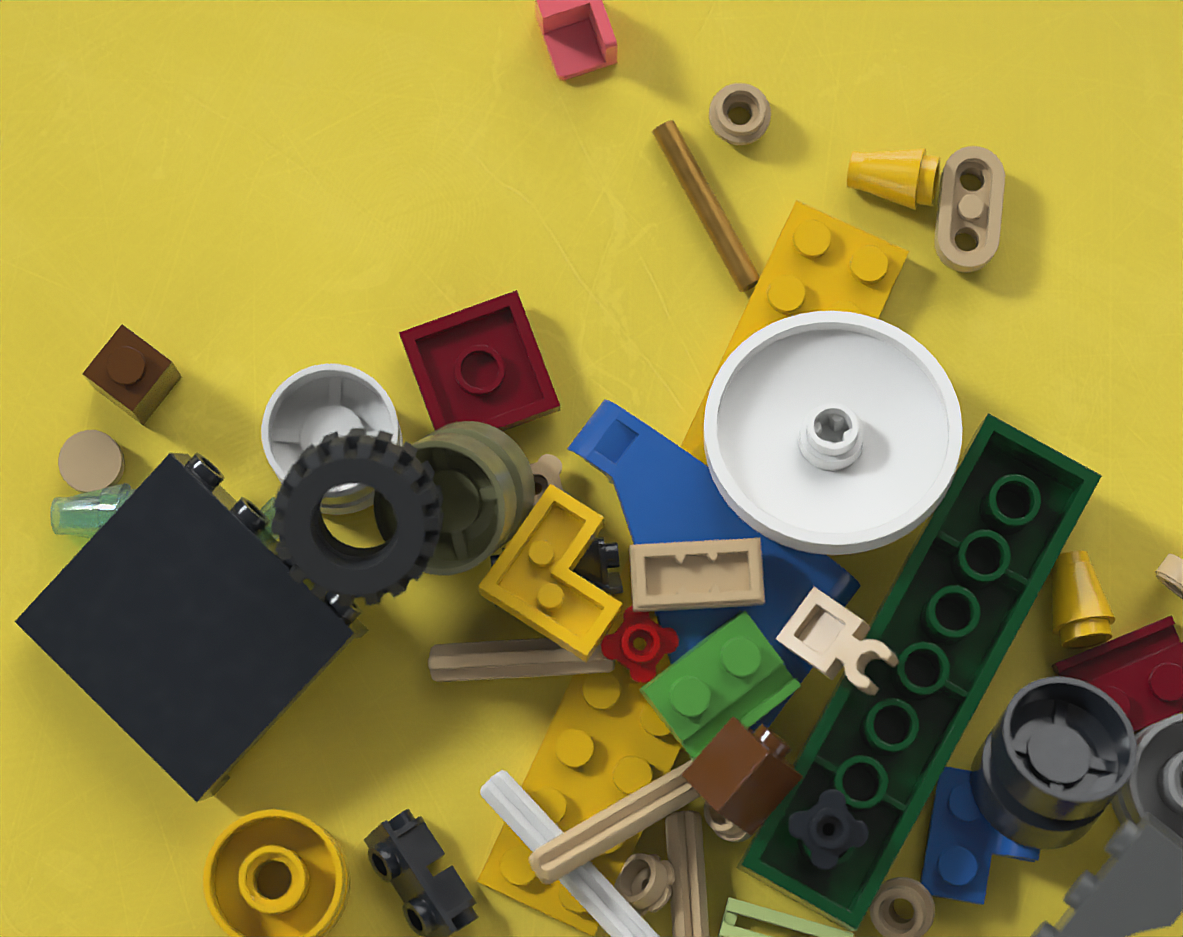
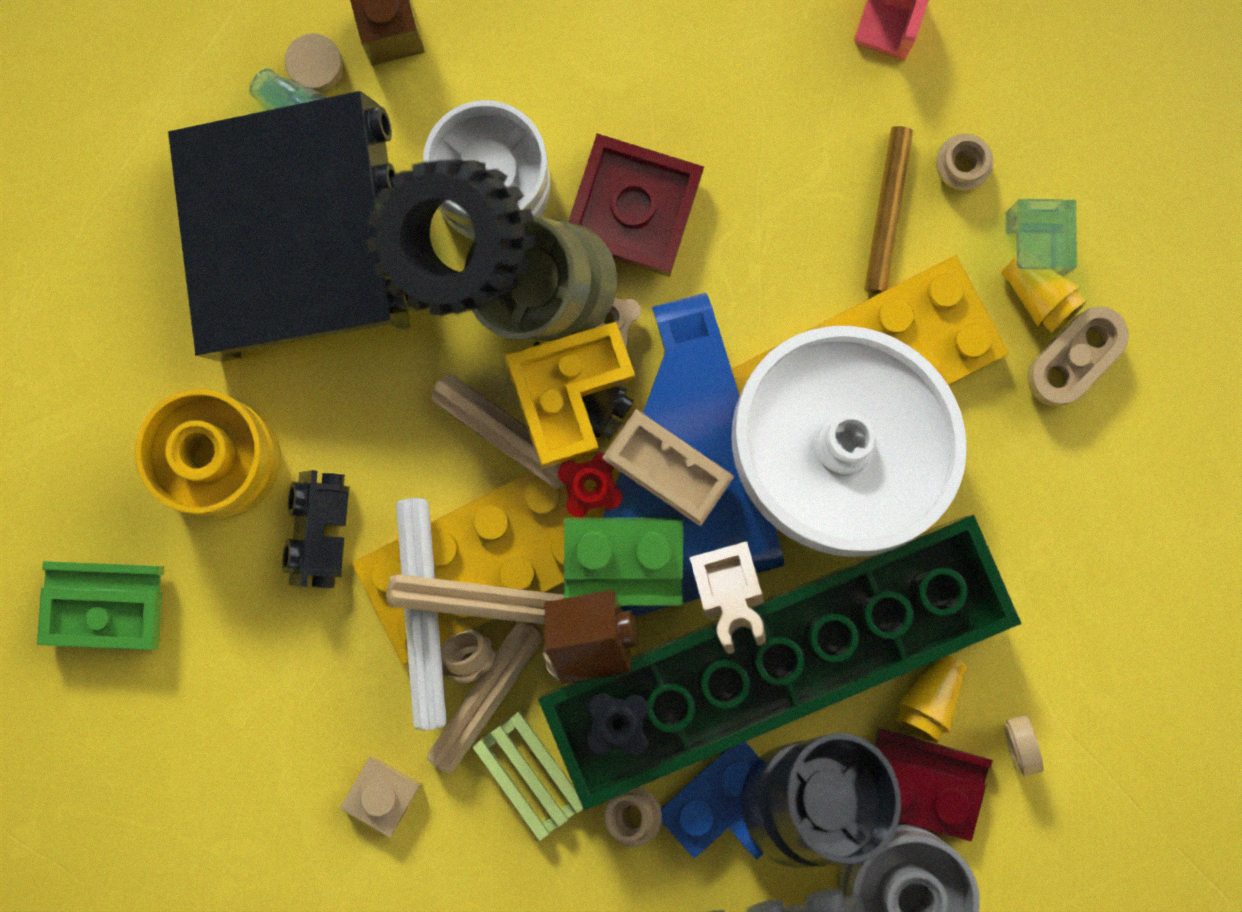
camera: 40 degrees right, 5 degrees up
(858, 126) = (1044, 233): none -> clear light blue panel

